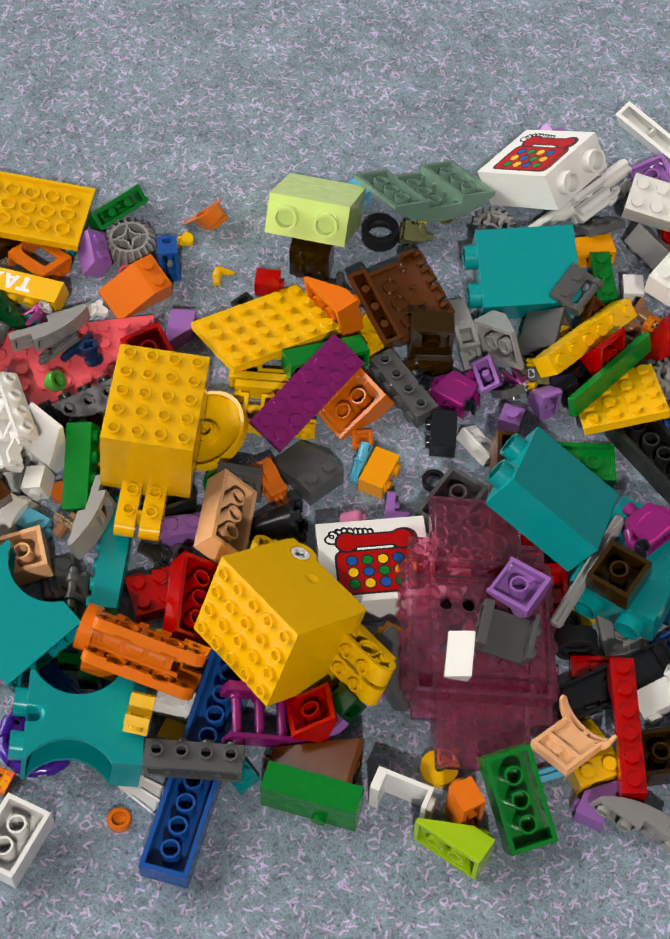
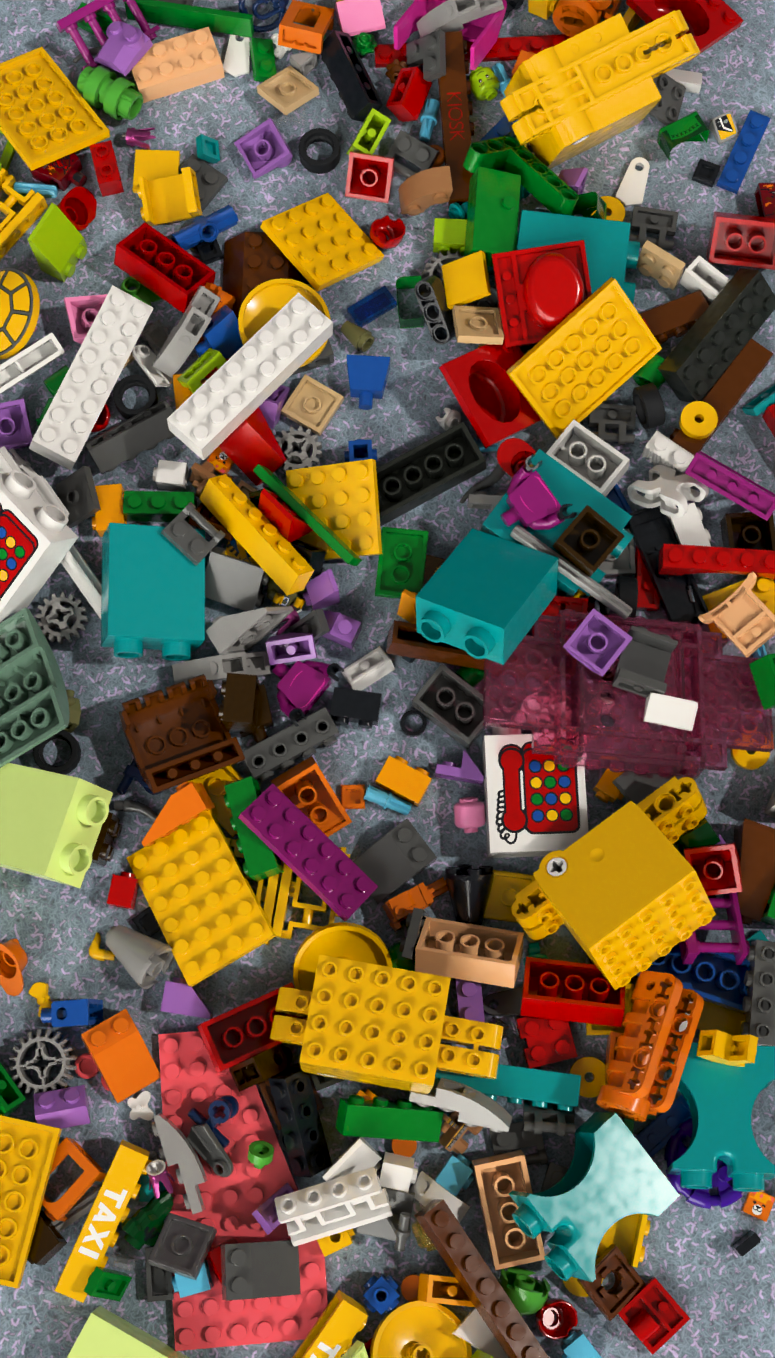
camera: 85 degrees left, 20 degrees up
(214, 294) = (139, 954): none -> light grey cone

